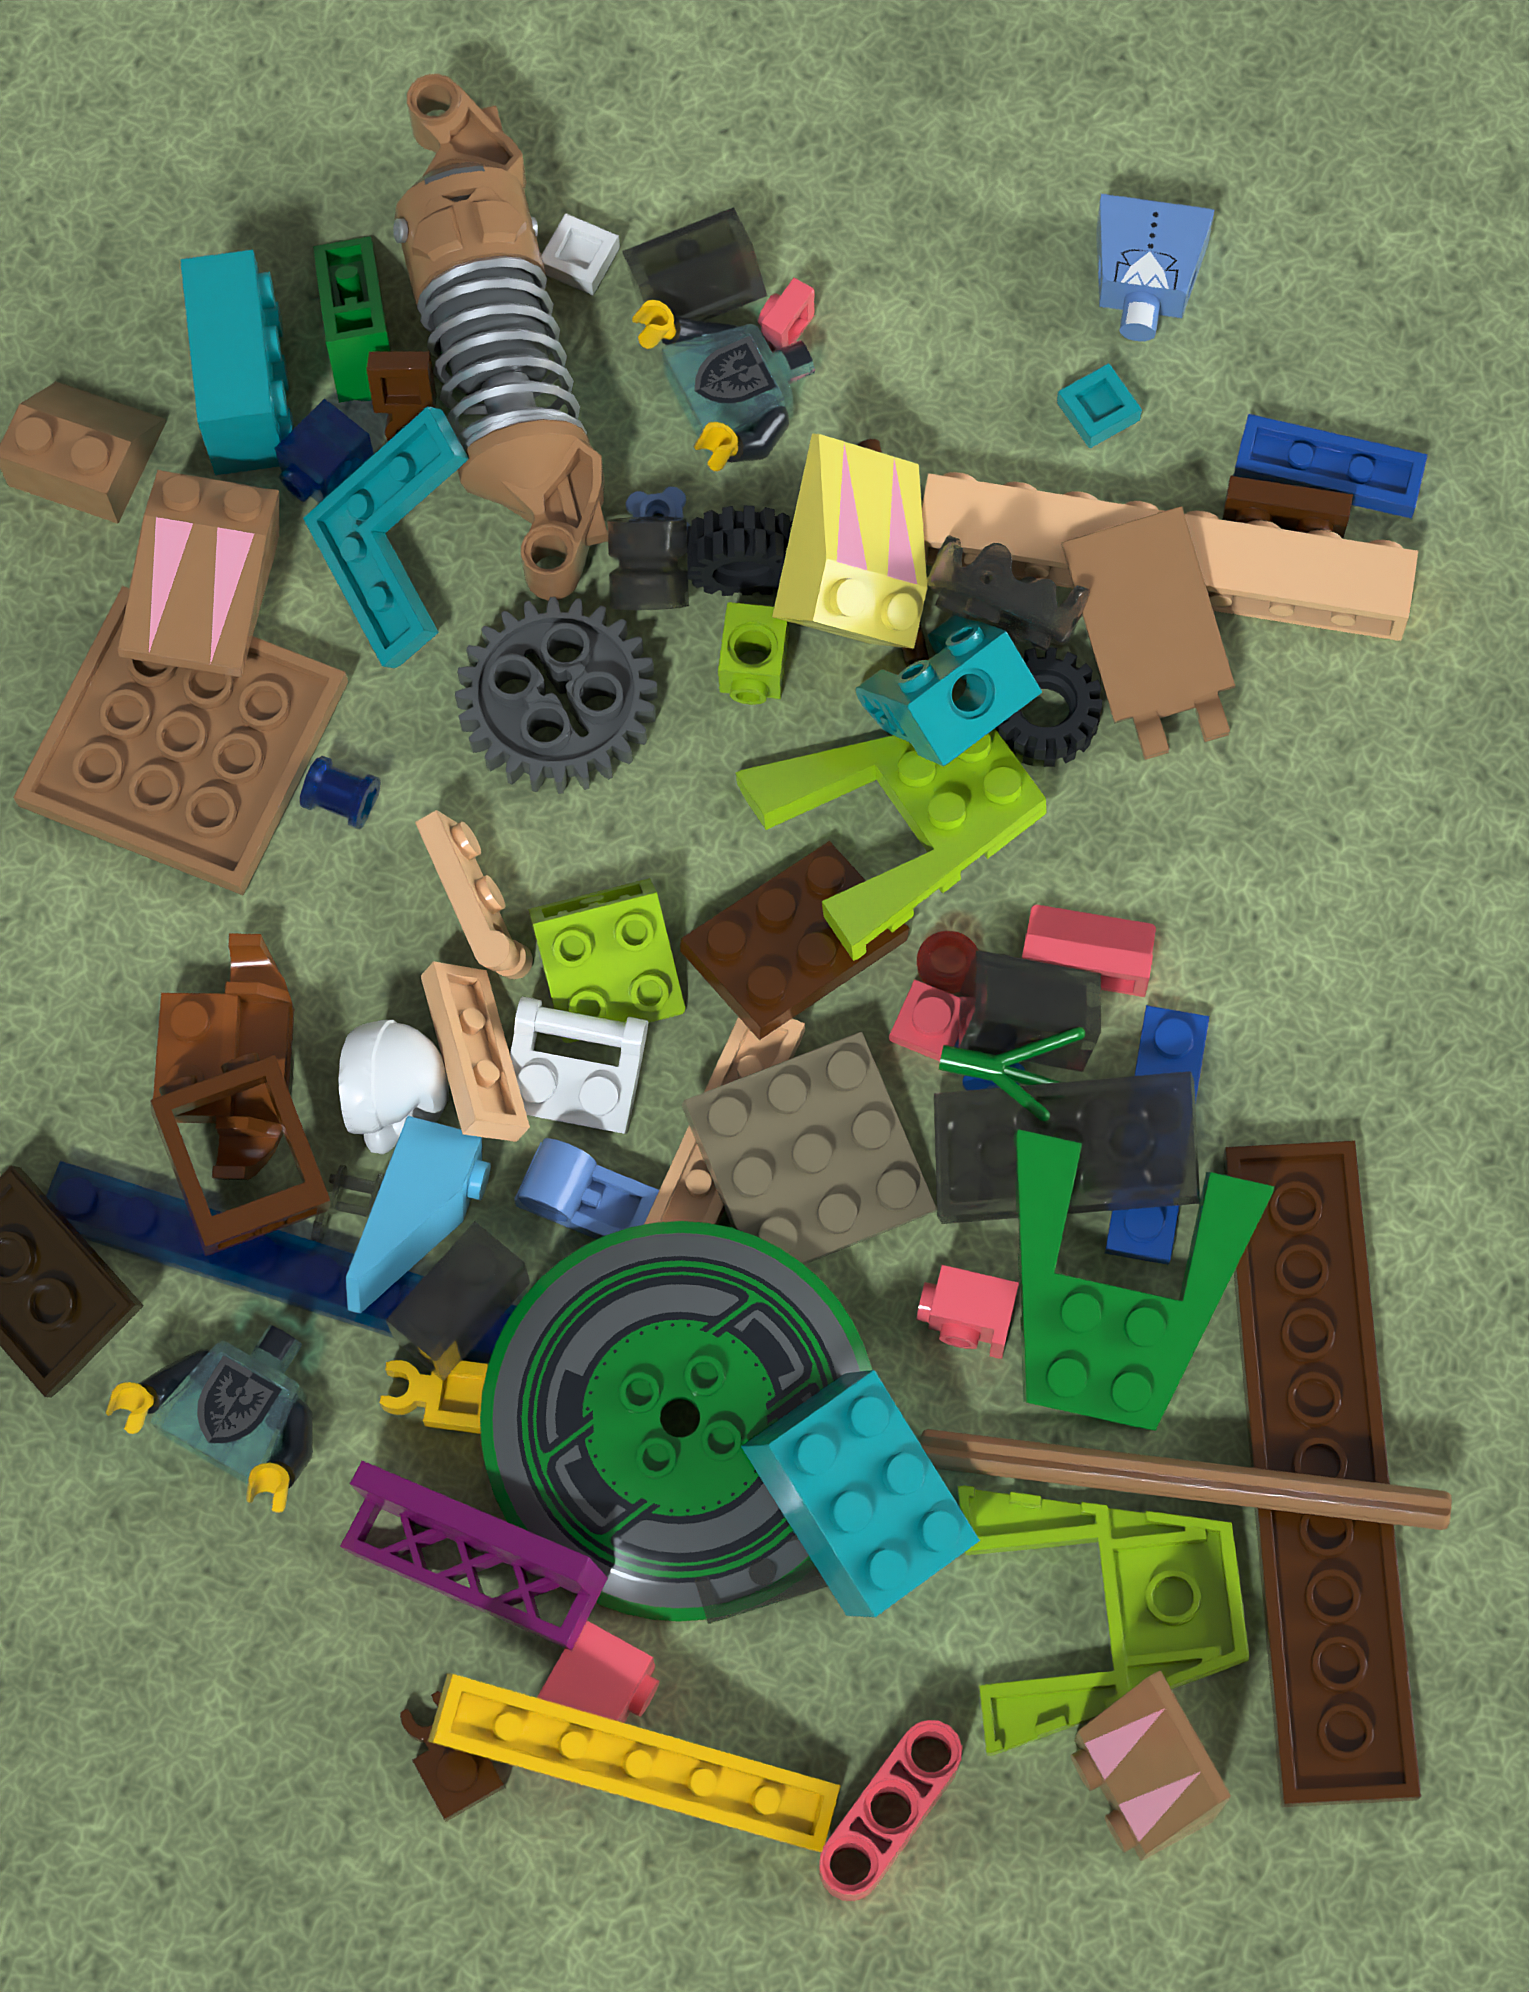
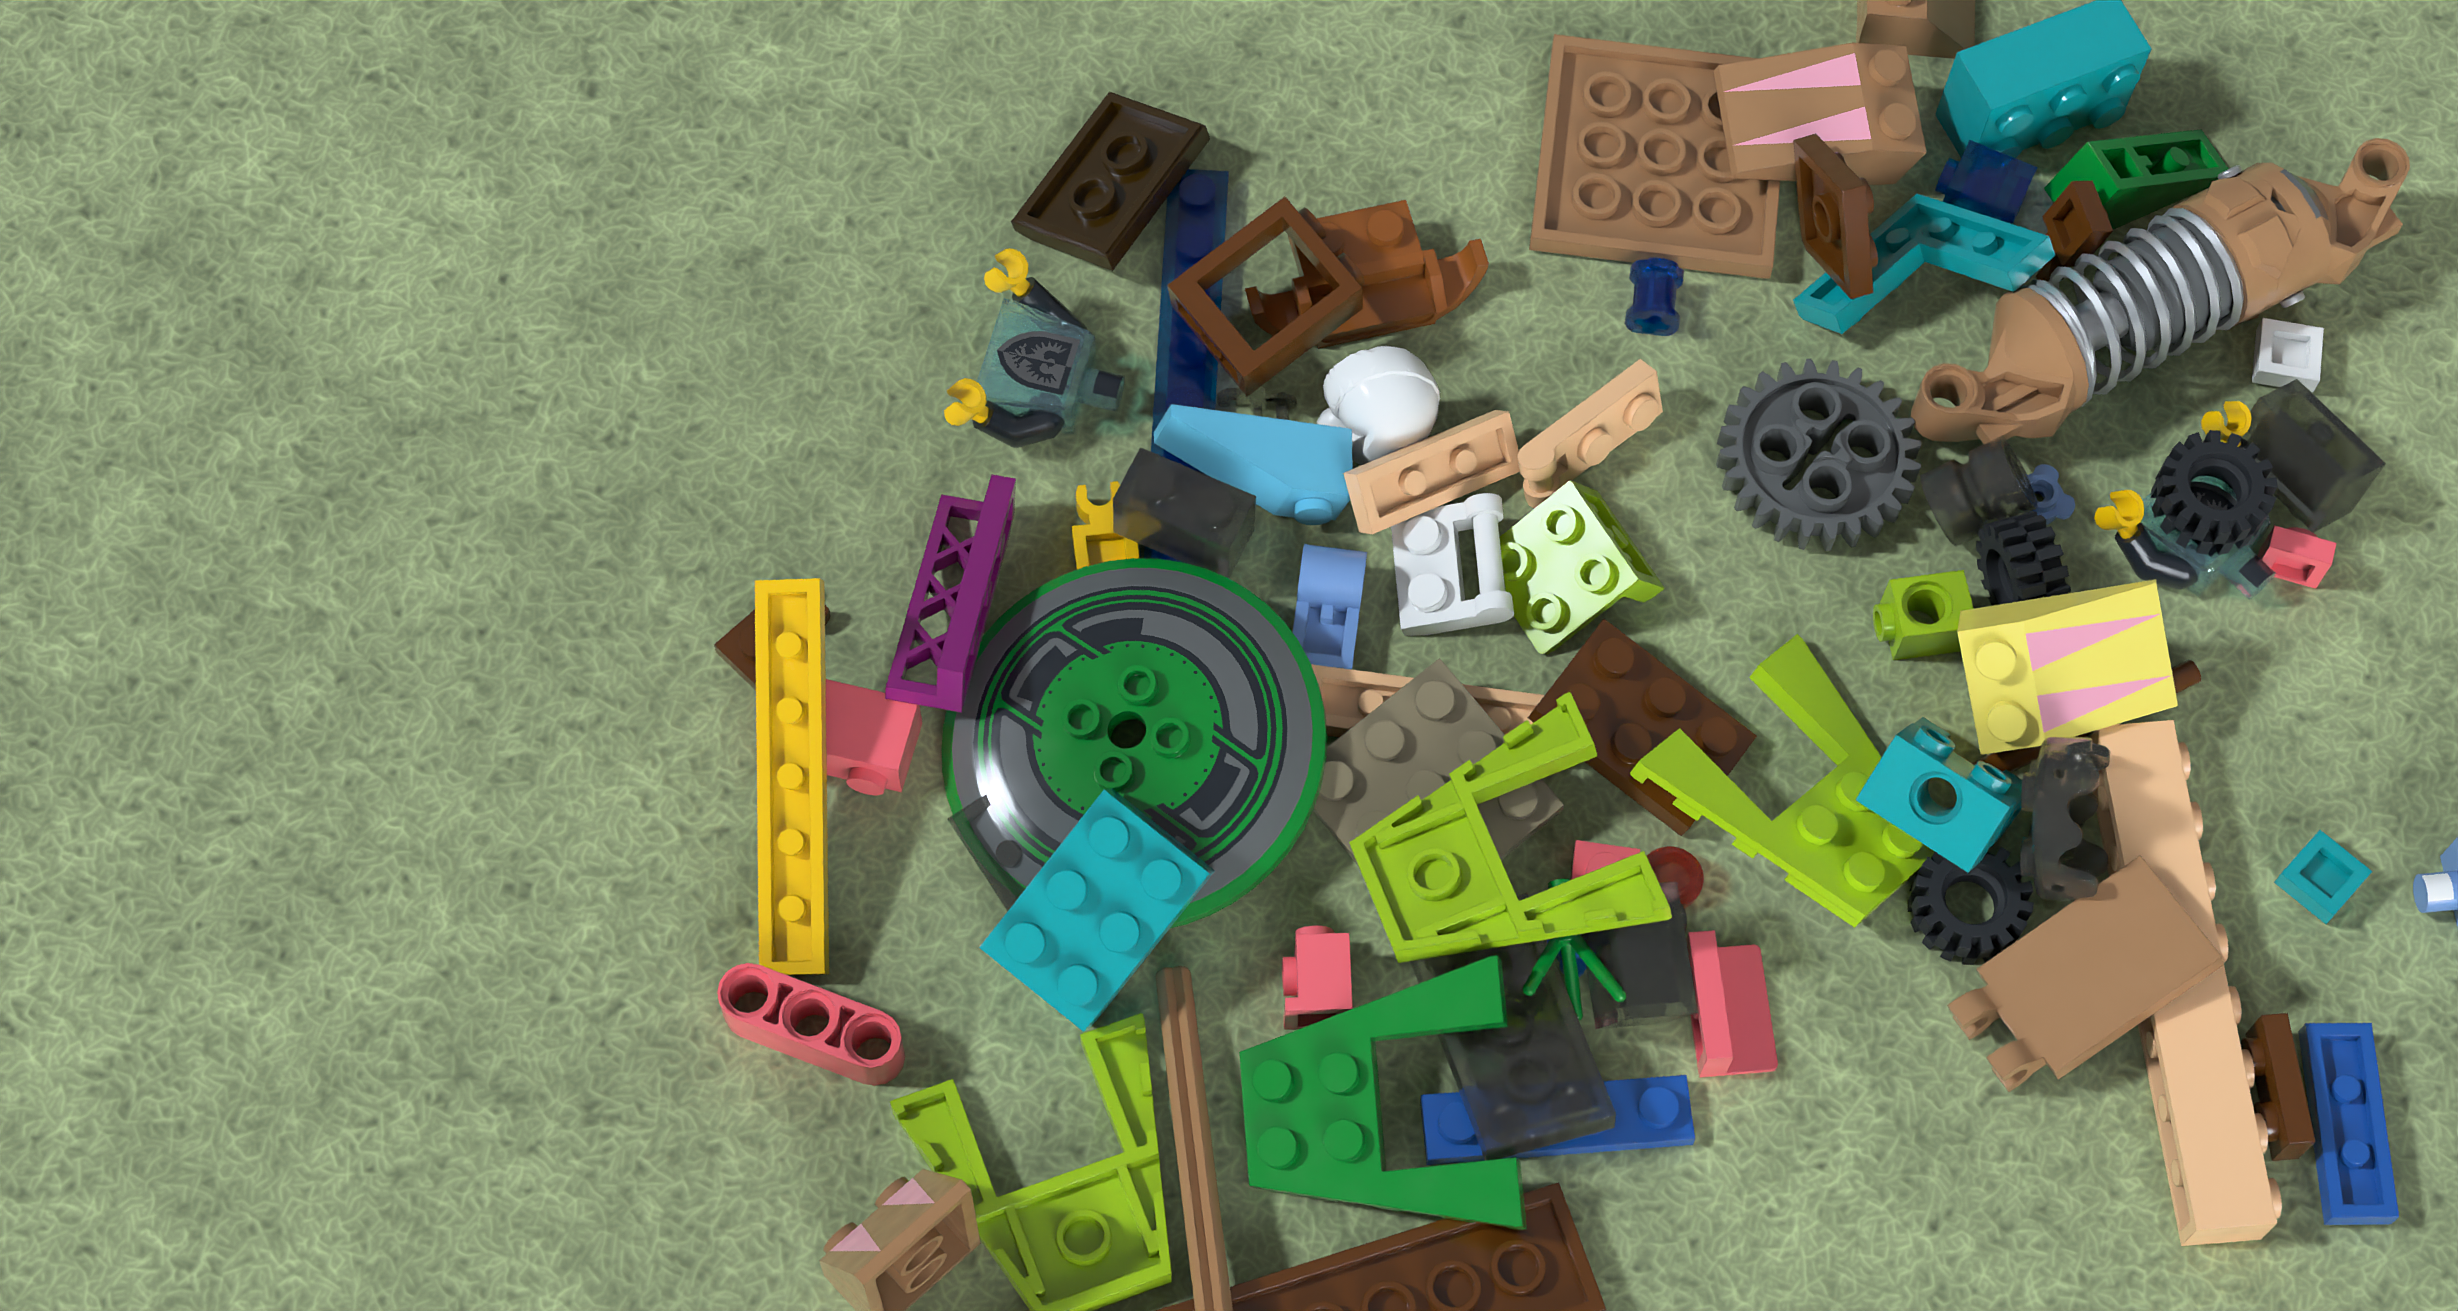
camera: 70 degrees right, 5 degrees down
(325, 593) = (1835, 215): none -> reddish brown plate
(713, 329) = (2231, 466): none -> black tyre
(913, 1160) = (1444, 881): none -> lime wing

